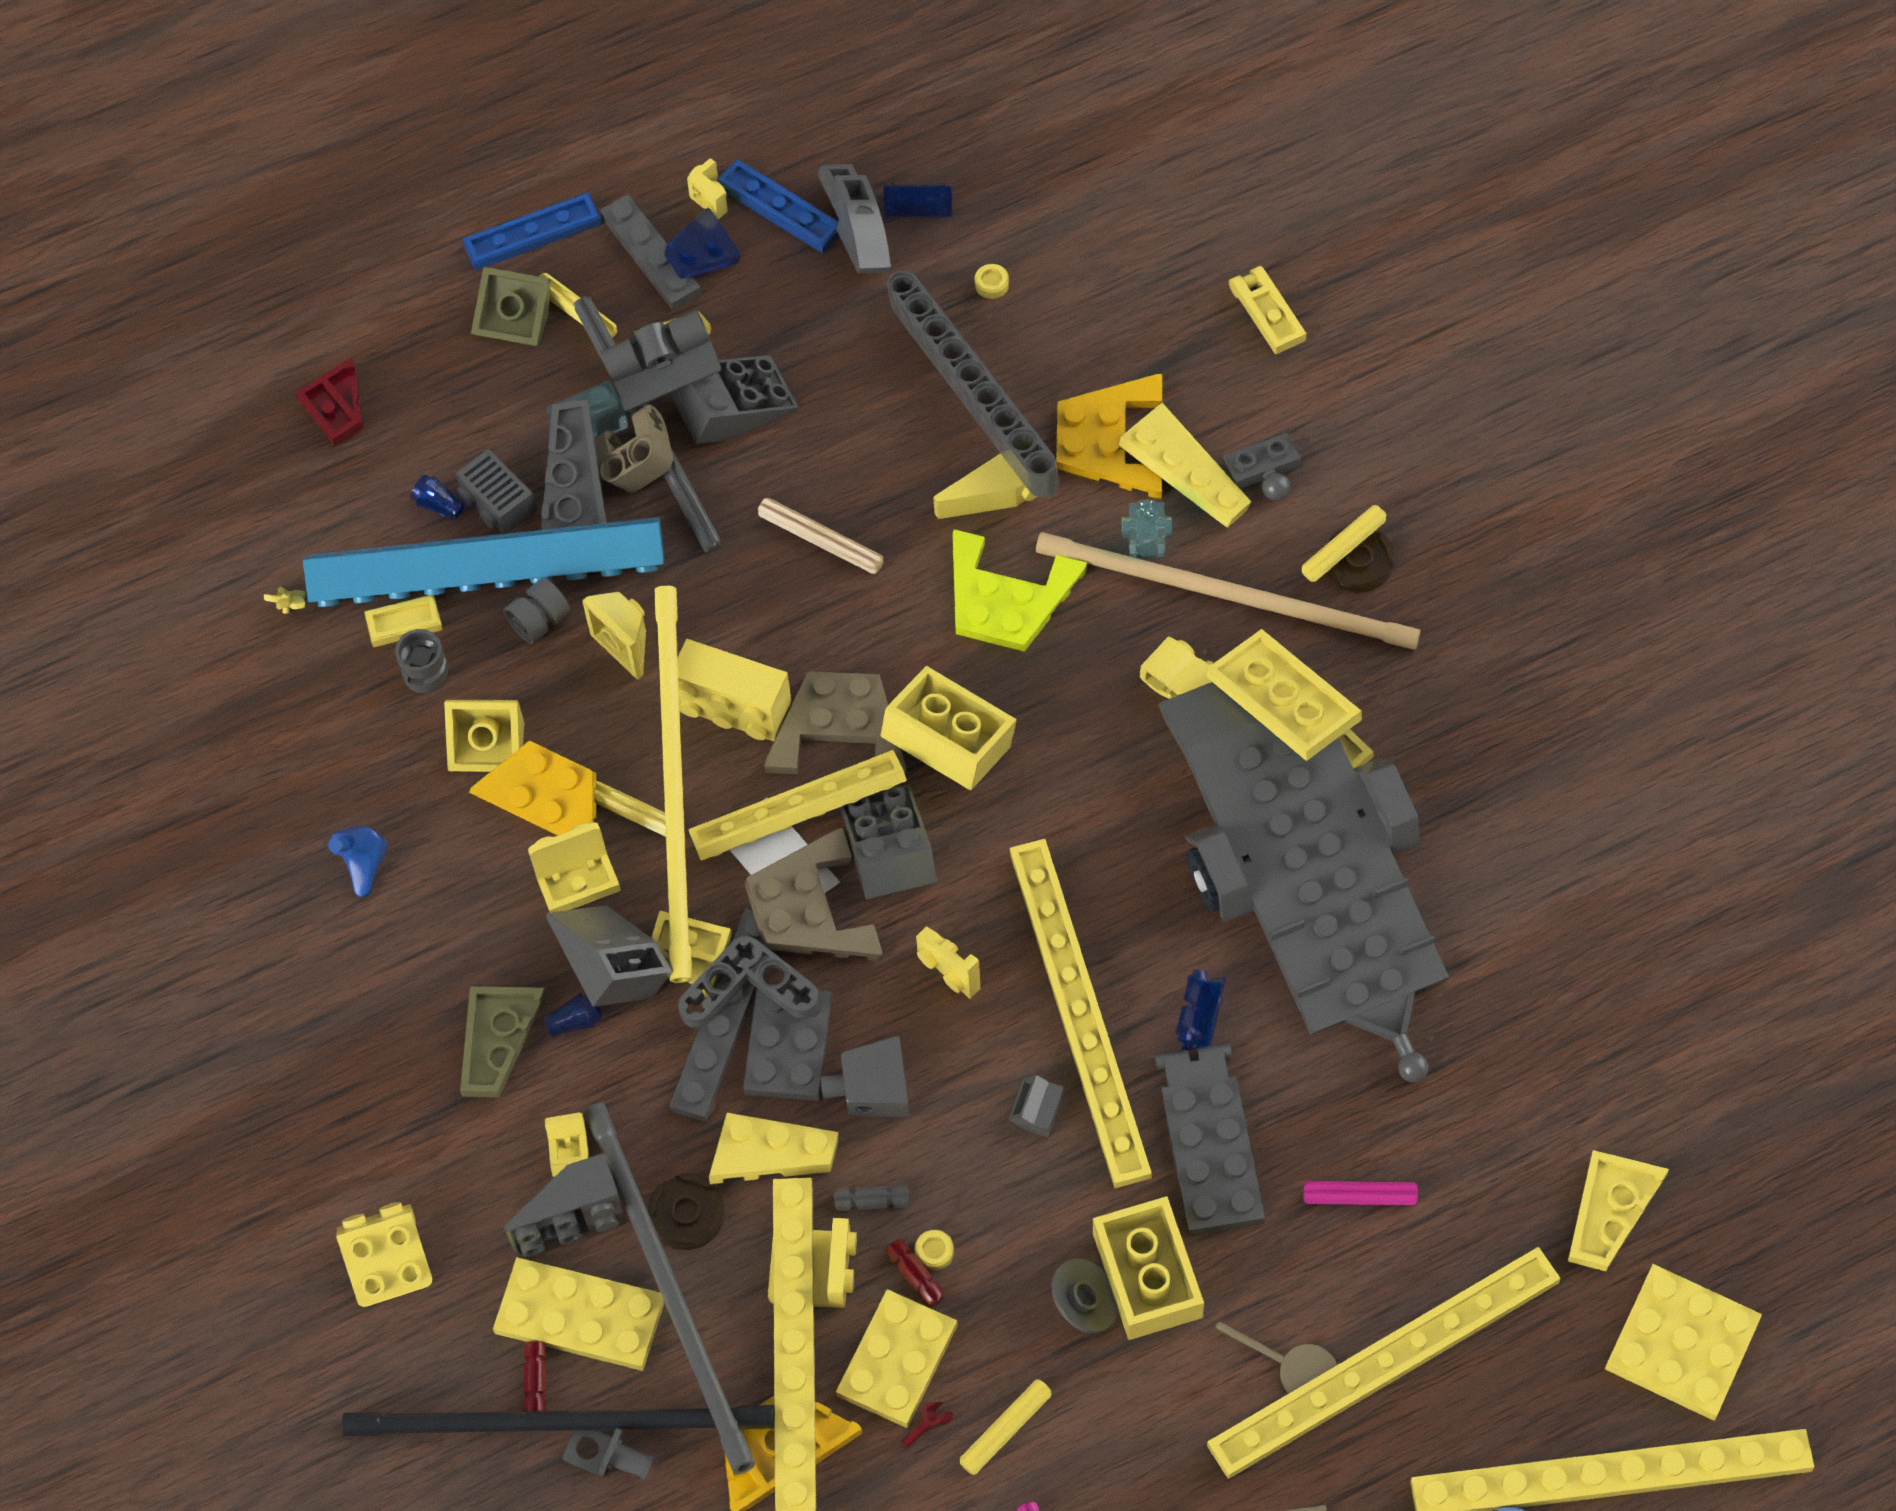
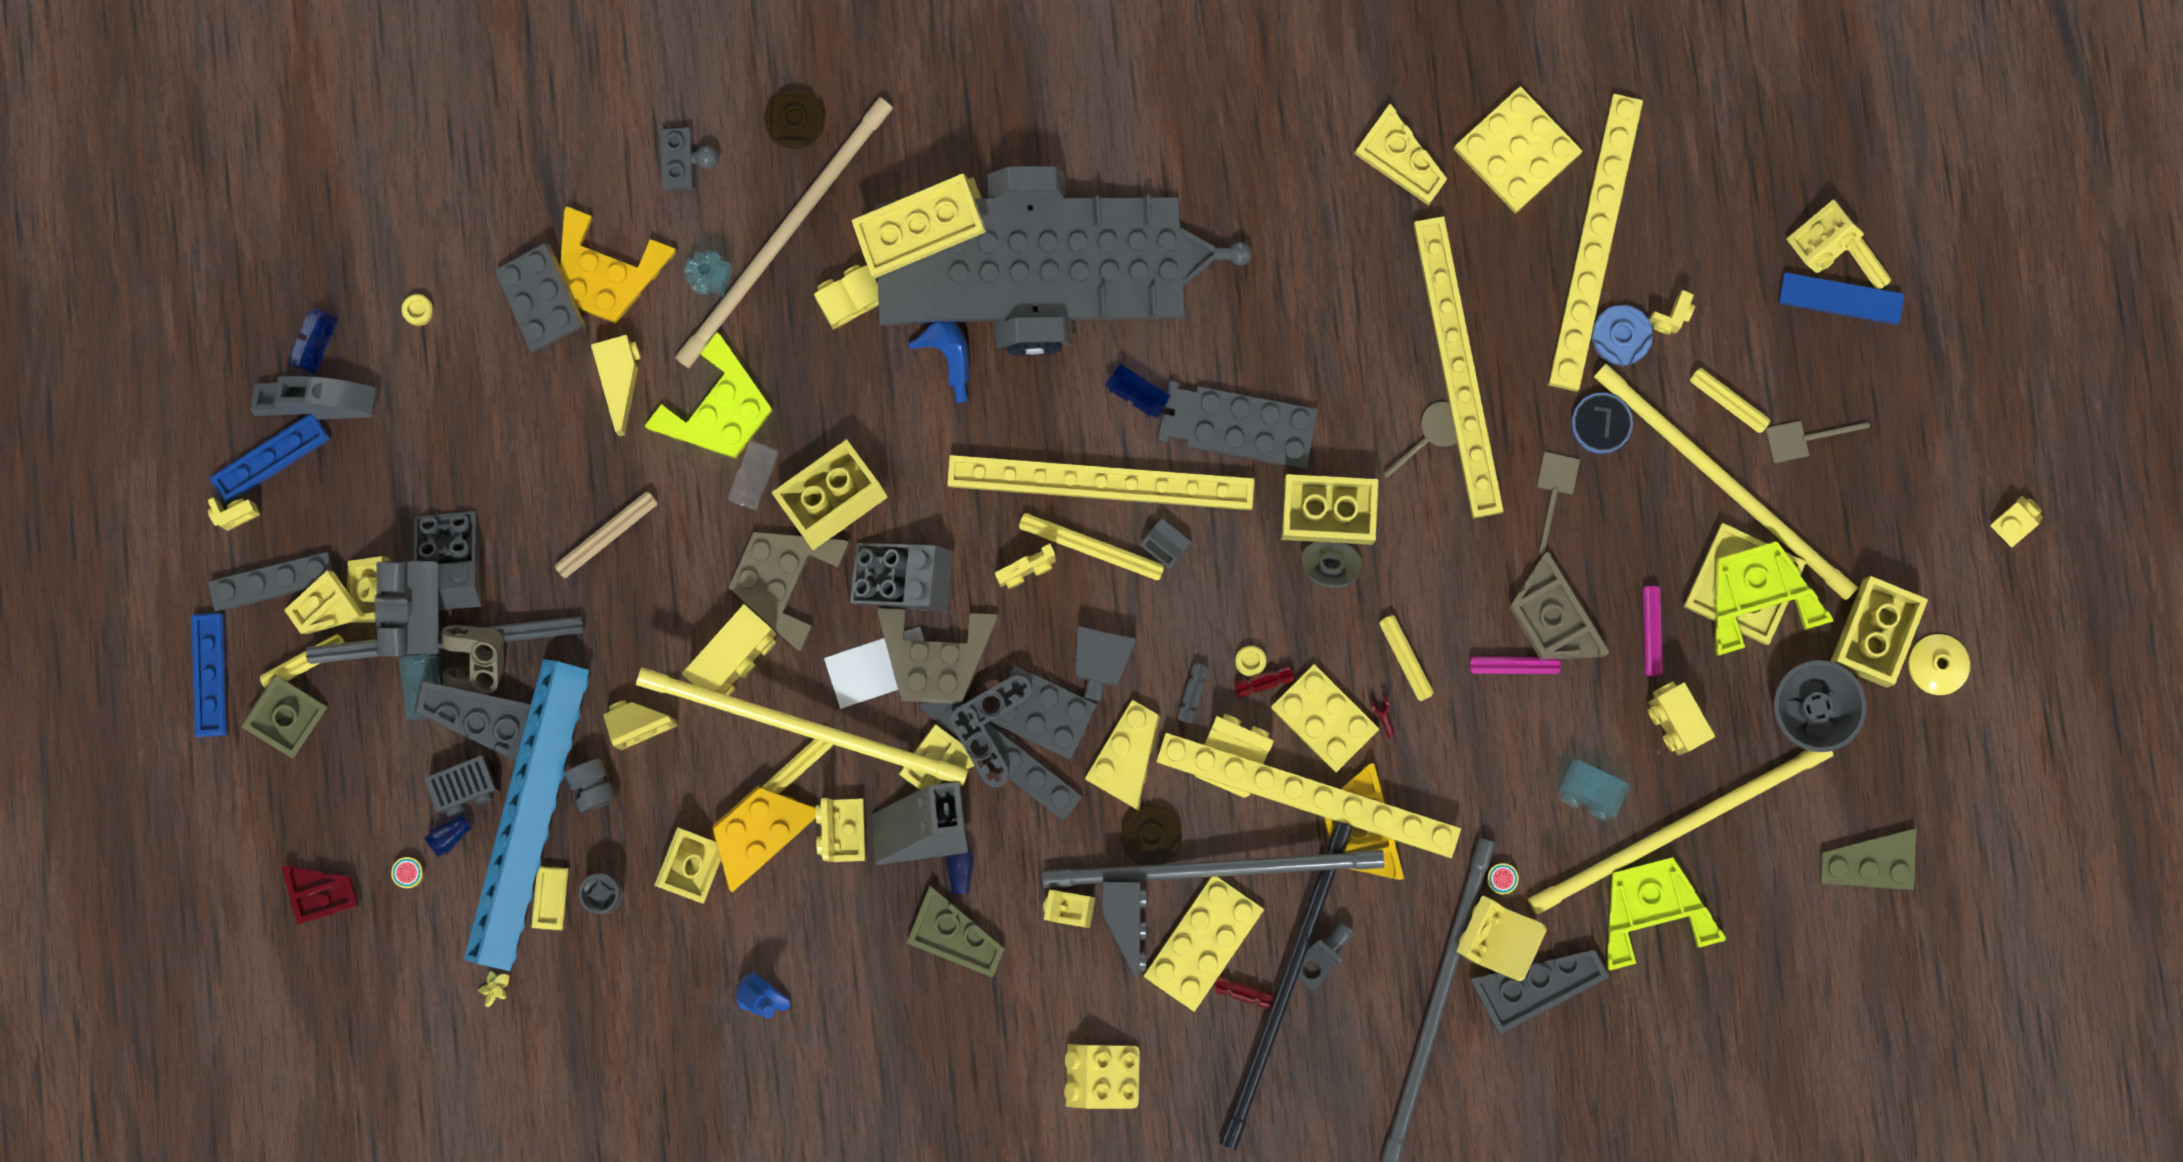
camera: 75 degrees left, 20 degrees up
(385, 477) = (407, 872): none -> tile
(640, 298) = (323, 606): none -> light yellow wing
(701, 247) = (288, 537): clear blue wing -> none
(797, 805) = (848, 636): light yellow plate -> none
(943, 655) = (753, 475): none -> clear slope
(973, 384) = (507, 358): dark grey beam -> none
(1001, 1028) = (1091, 546): none -> light yellow axle
(1056, 381) = (540, 297): none -> dark grey plate
(1174, 797) = (951, 341): none -> blue animal
(1182, 462) = (653, 223): light yellow wing -> none
(1268, 310) = (538, 98): light yellow plate -> none
(1343, 543) = (782, 125): light yellow axle -> none
(1360, 1193) = (1322, 332): dark pink axle -> none

